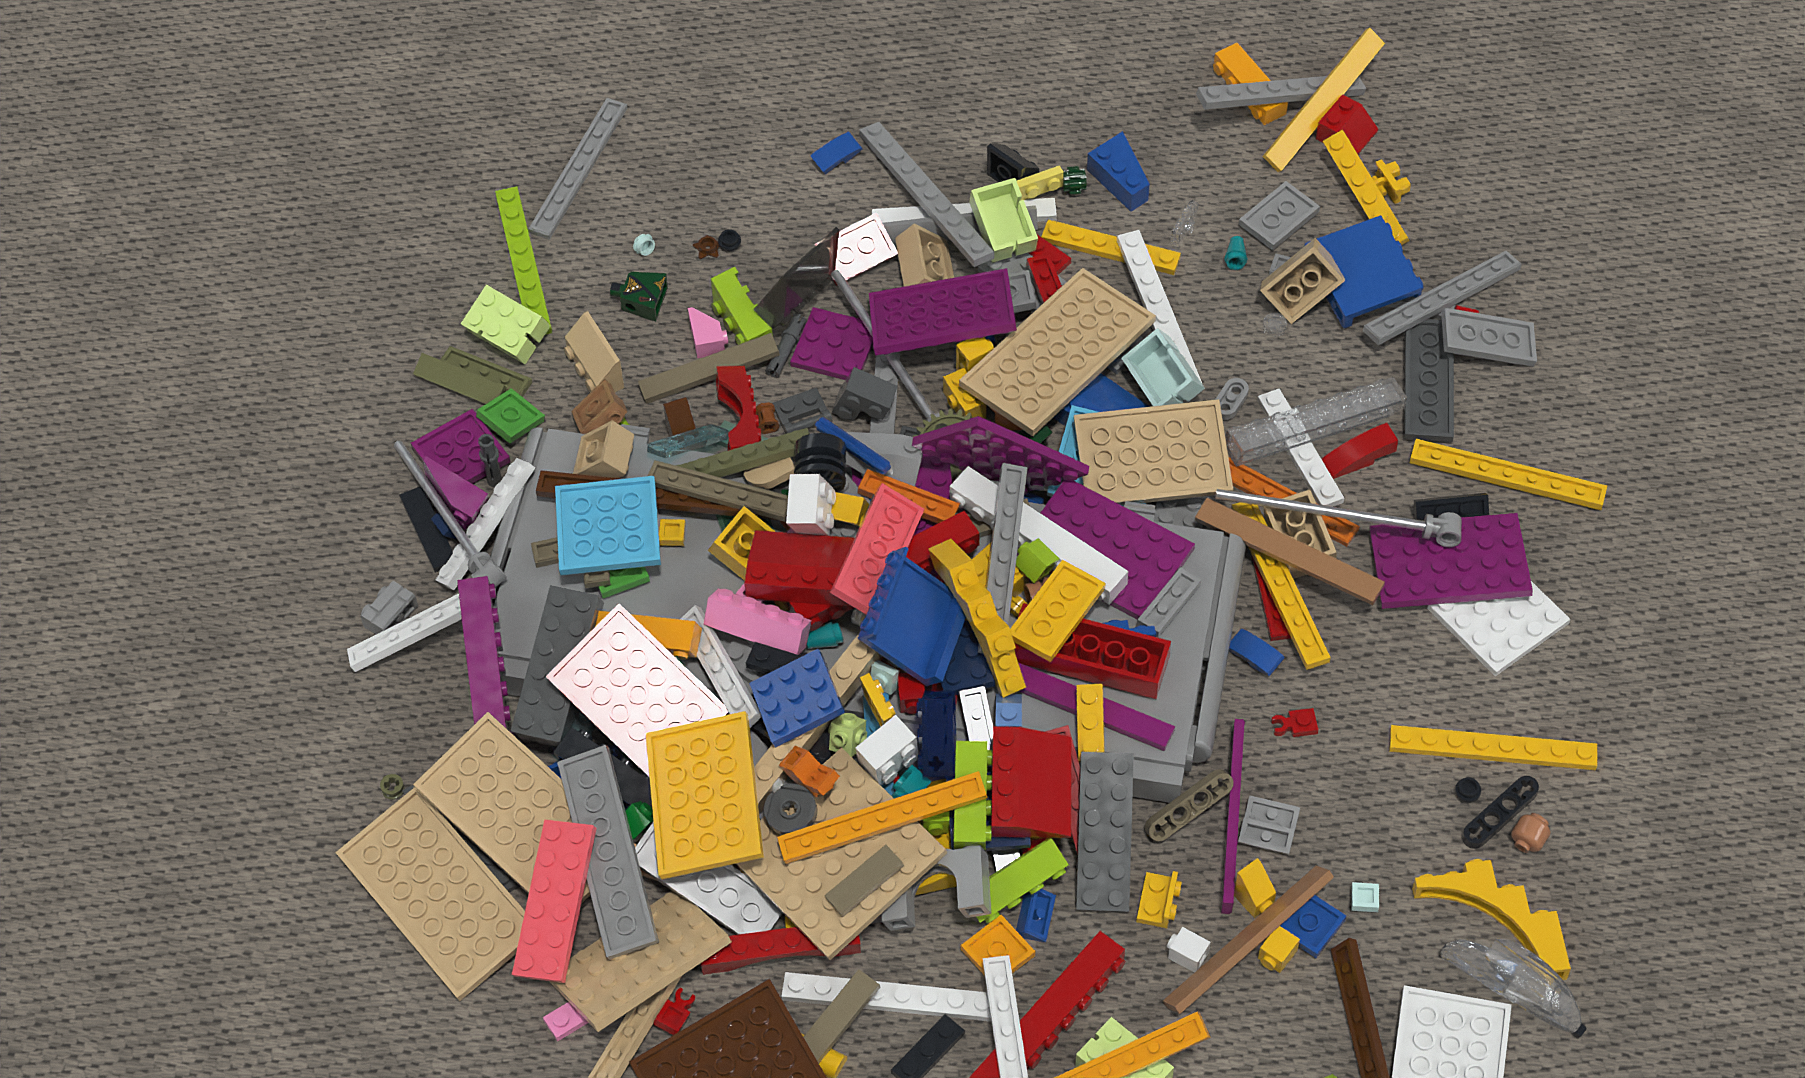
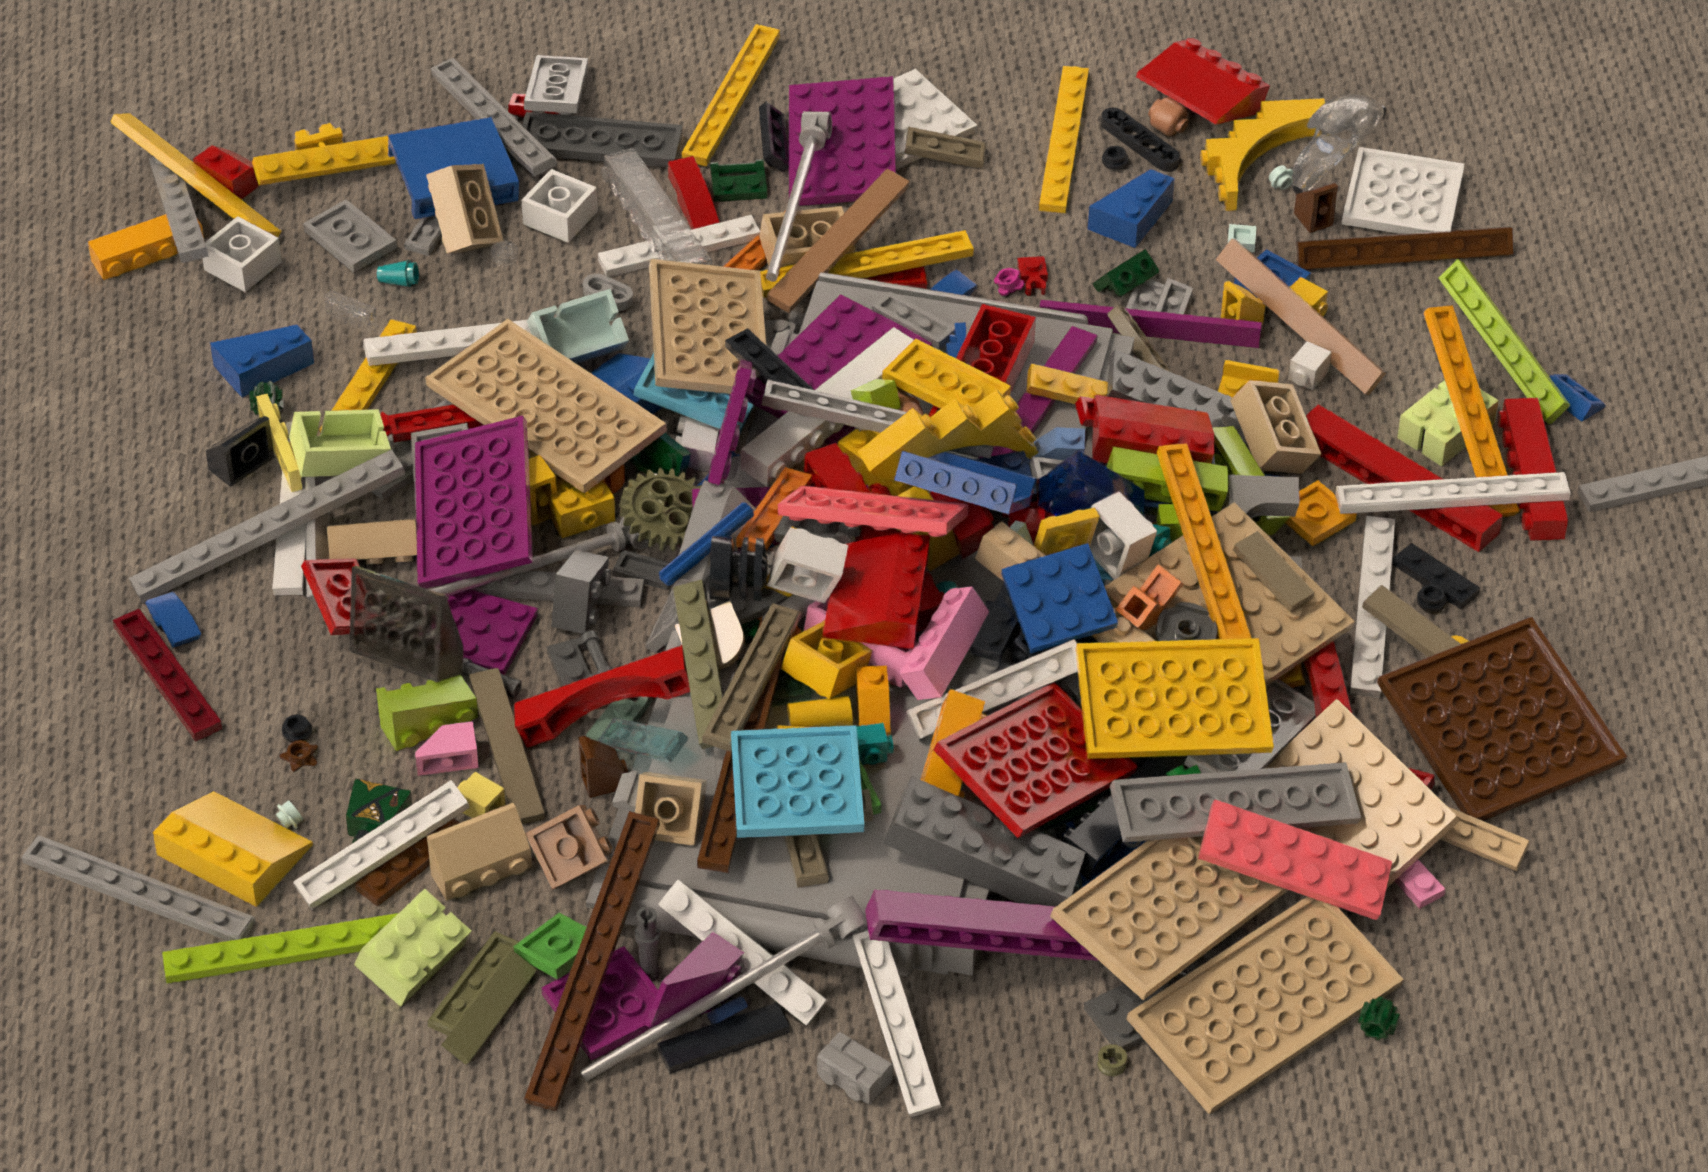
camera: 90 degrees left, 10 degrees down
(417, 977) = (1379, 1018): none -> dark green gear
(474, 425) = (592, 961): none -> reddish brown plate
(604, 297) = (381, 844): none -> white plate
(612, 328) = (397, 871): none -> reddish brown plate
(614, 212) = (229, 846): none -> yellow slope
(655, 356) = (481, 795): none -> light yellow brick
(664, 582) = (873, 743): none -> teal brick
(700, 540) = (821, 712): none -> yellow brick
(709, 580) = (873, 696): none -> light orange slope
(780, 156) = (167, 675): none -> dark red plate
(897, 1045) = (1431, 597): none -> black plate
(1084, 907) = (1275, 427): none -> tan brick
(1085, 491) = (764, 361): none -> black tile
(1238, 142) = (242, 254): none -> white brick
(1280, 701) = (1008, 281): none -> dark pink plate
(1294, 795) = (1128, 274): none -> dark green bracket
(1327, 352) = (559, 205): none -> white brick
(1384, 487) = (738, 187): none -> dark green plate
(1390, 802) = (1133, 208): none -> blue wedge
(1411, 959) = (1316, 207): none -> reddish brown slope
(1455, 644) = (945, 147): none -> dark tan tile
(1458, 932) = (1281, 177): none -> light aqua plate
(1574, 858) = (1205, 82): none -> red slope

